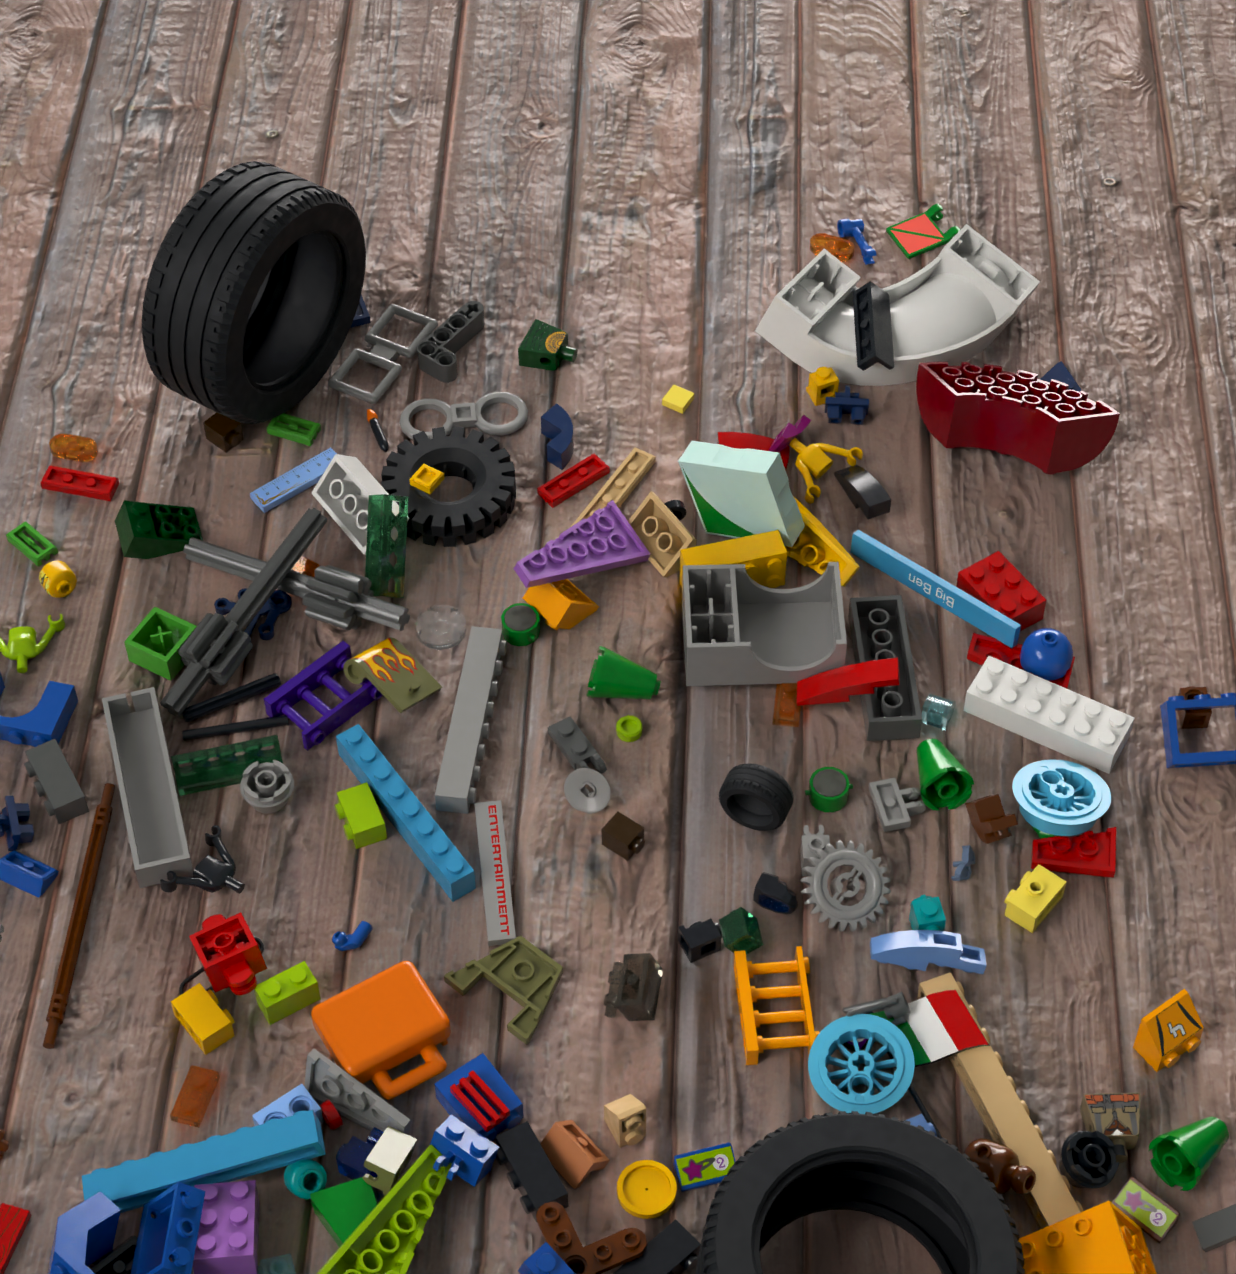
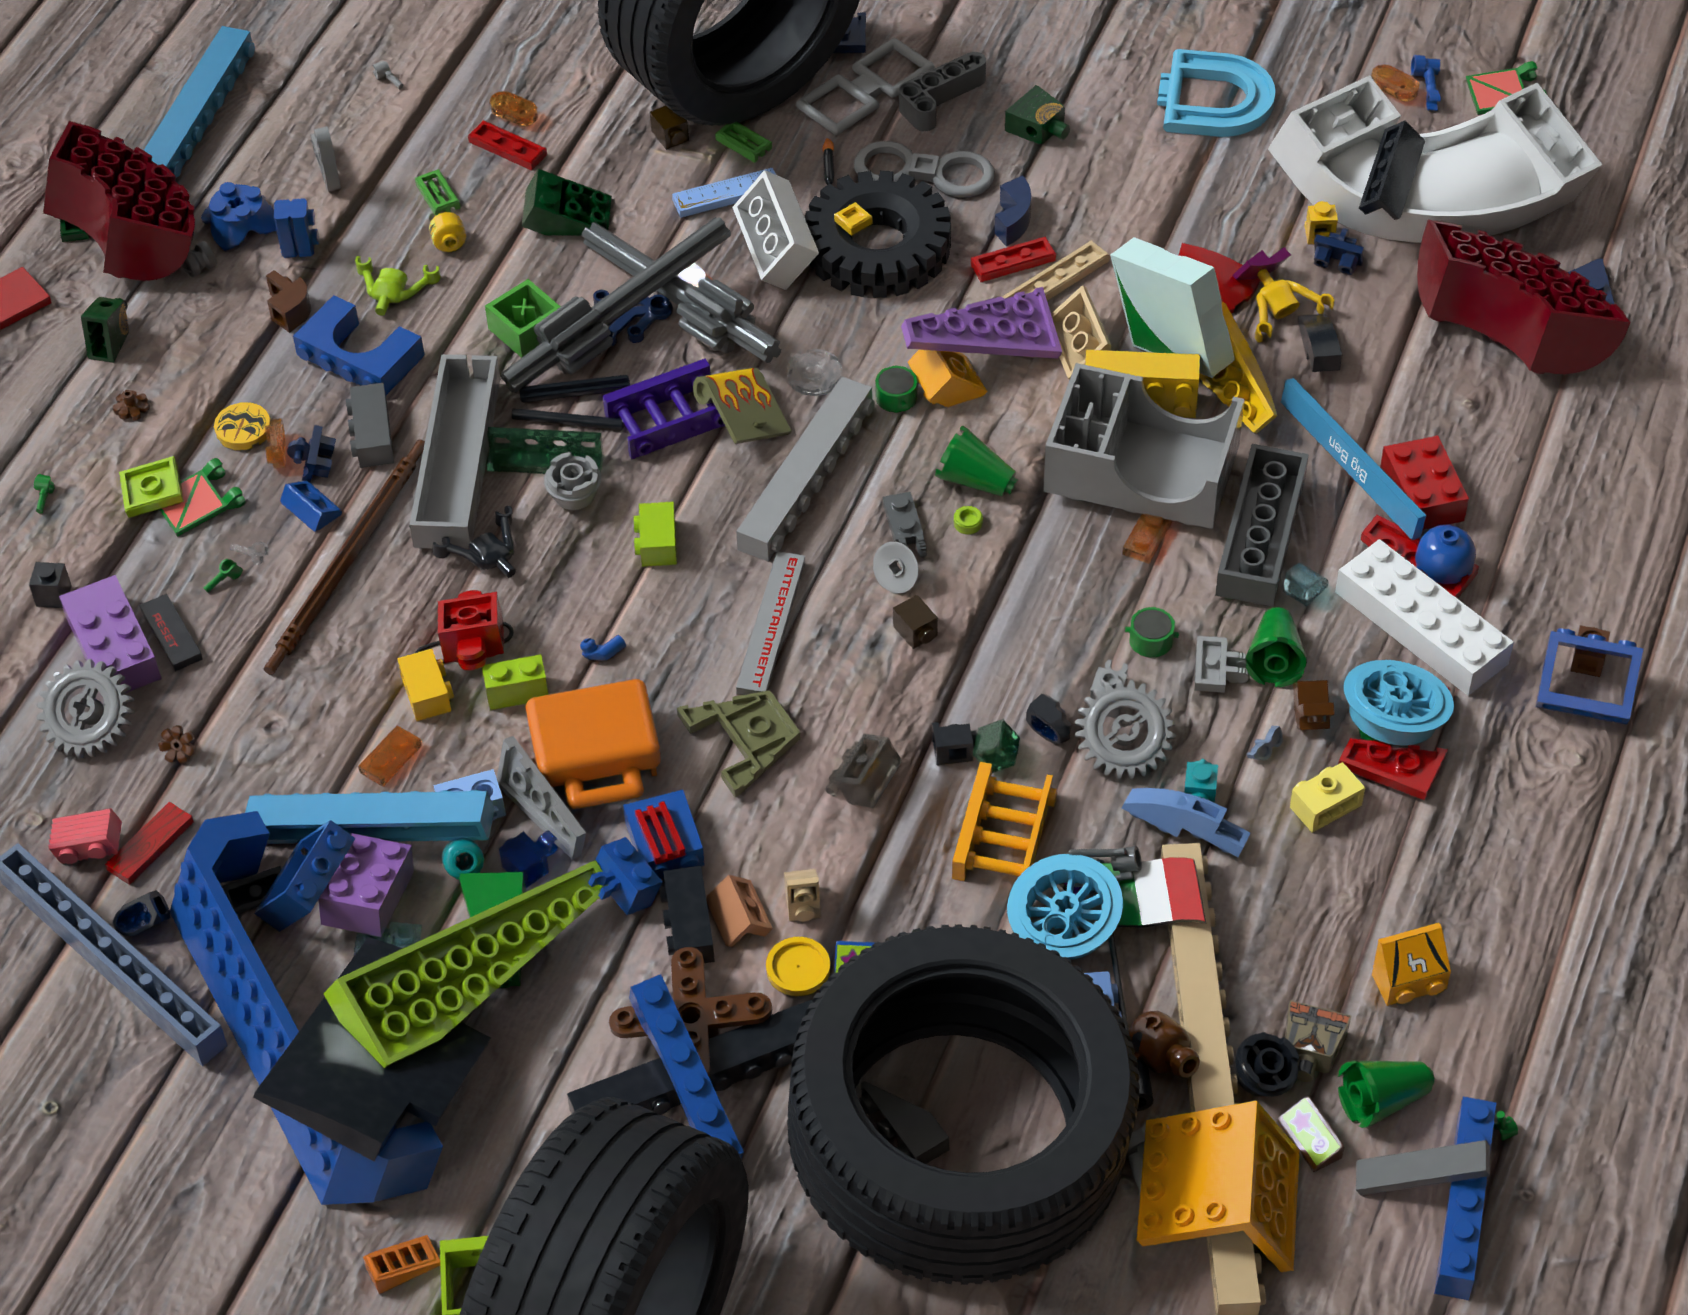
camera: 20 degrees right, 0 degrees up
(331, 1115) = (512, 808): red tile -> none
(381, 545) = (775, 274): clear green fence -> none
(389, 1158) = (549, 860): hinge -> none
(406, 813) = (702, 542): dark azure brick -> none
(677, 508) = (1107, 313): black tile -> none
(678, 399) = (1159, 202): light yellow tile -> none
(689, 316) = (1216, 121): none -> medium azure piece
(756, 797) = (1066, 616): black tyre -> none
(848, 680) = (1206, 526): red slope -> none

